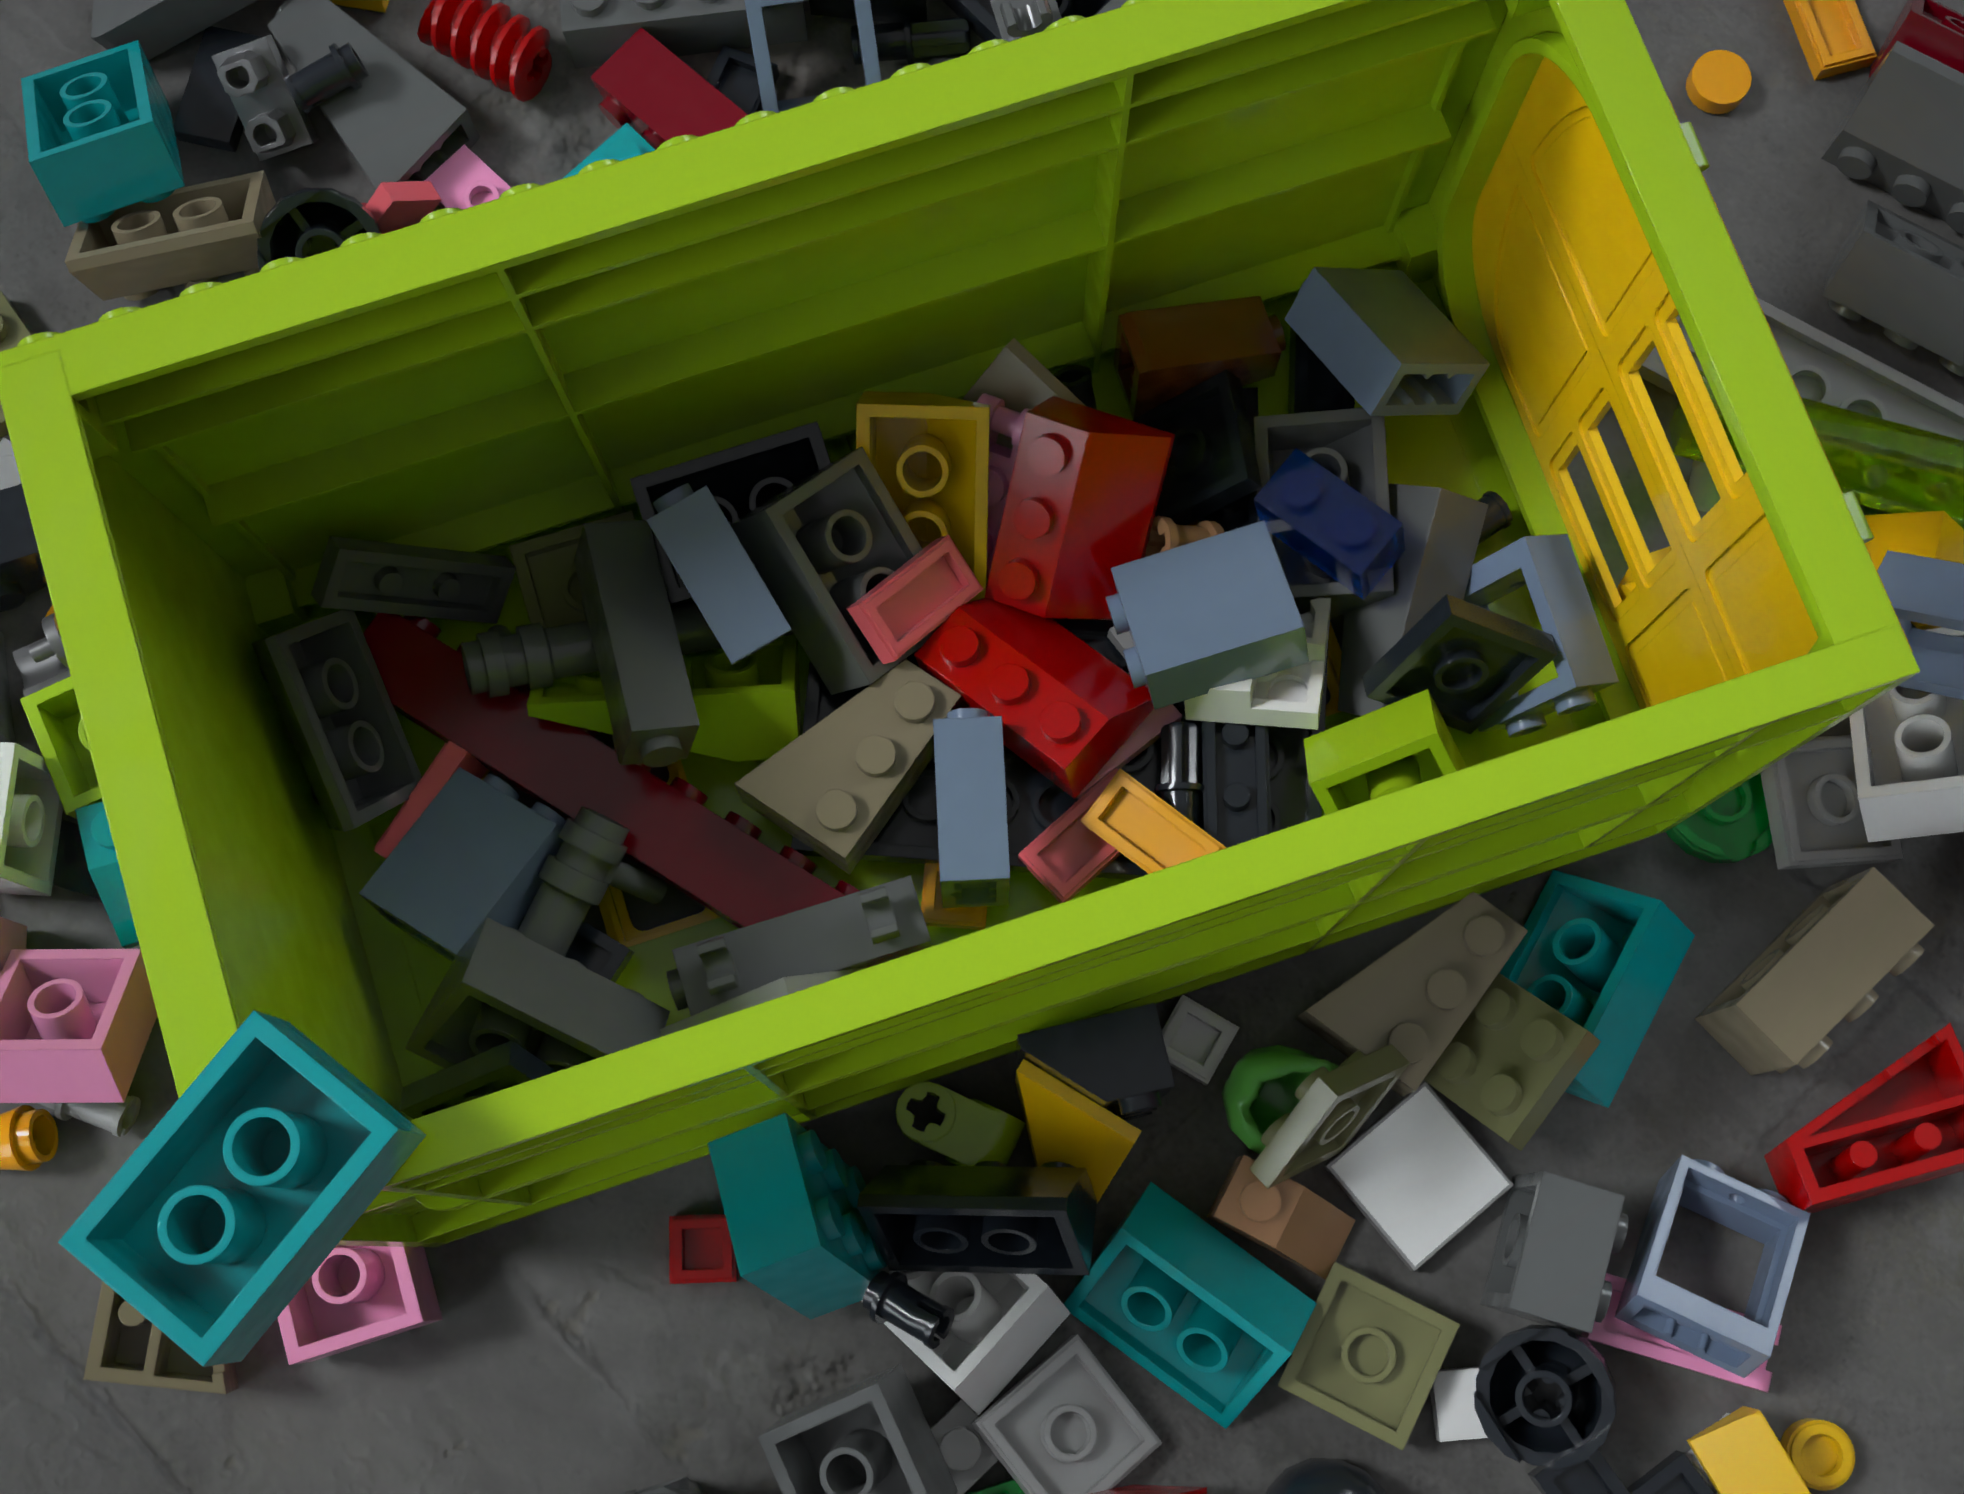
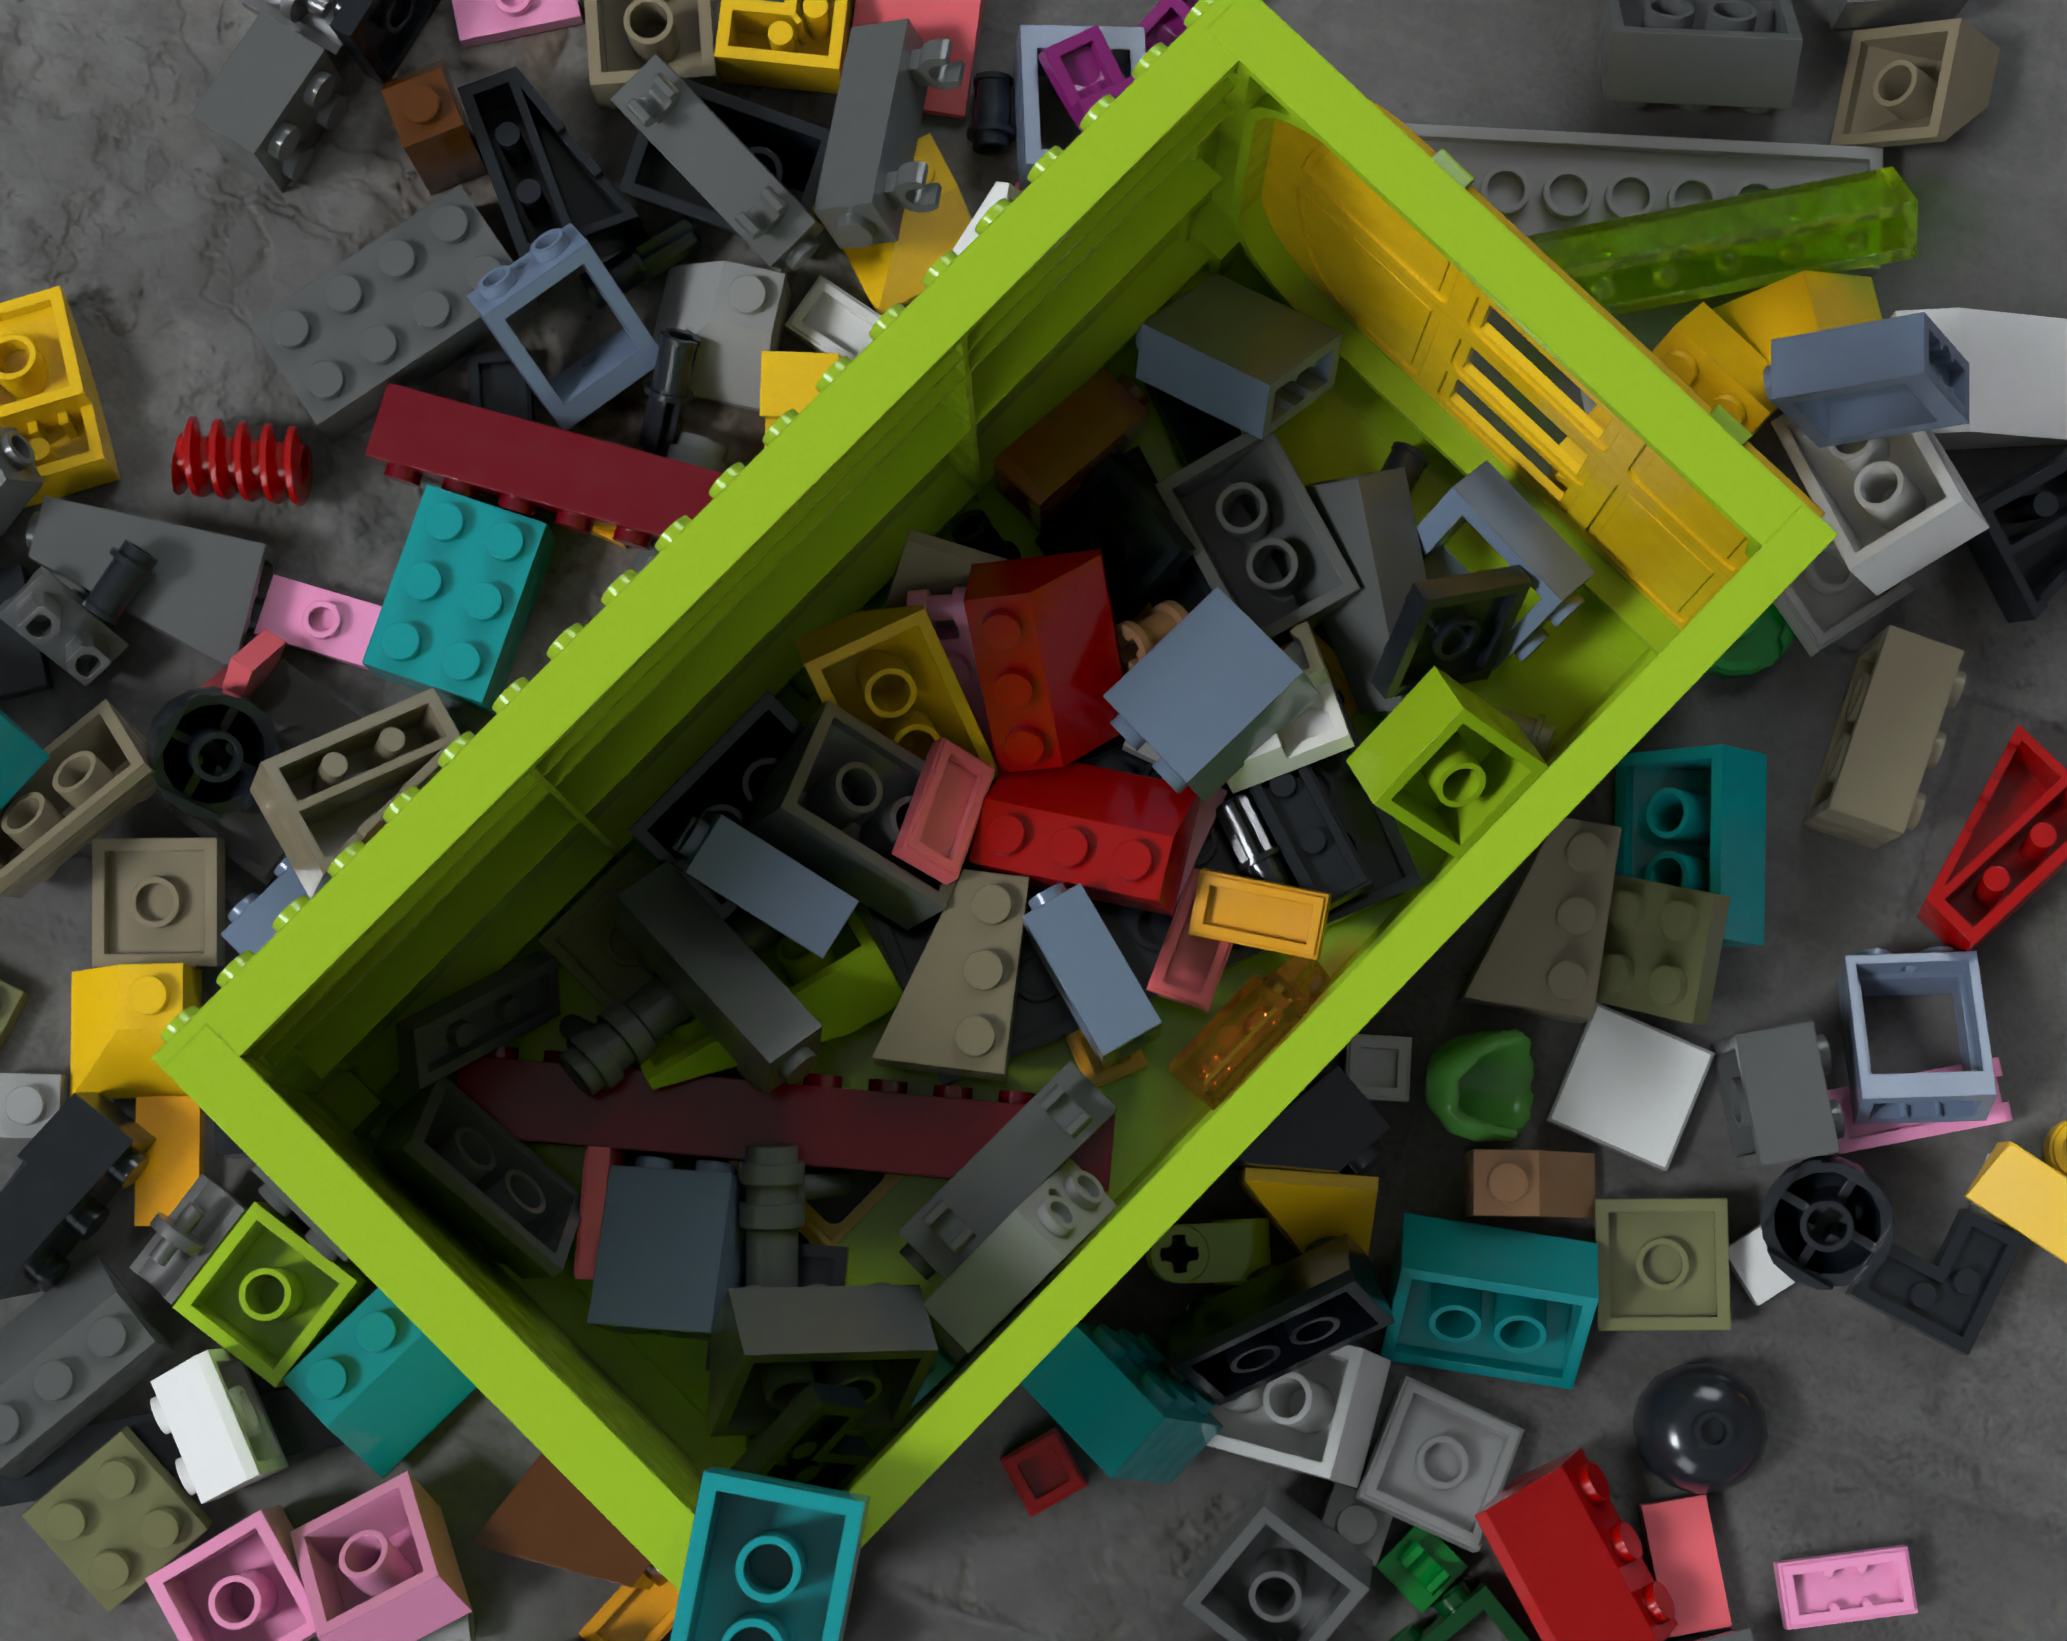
camera: 25 degrees left, 5 degrees up
(915, 1313) = (1253, 1430): black pin -> none
(1328, 1114) = (1528, 1078): olive plate -> none
(1330, 523) = (1276, 559): clear blue brick -> none

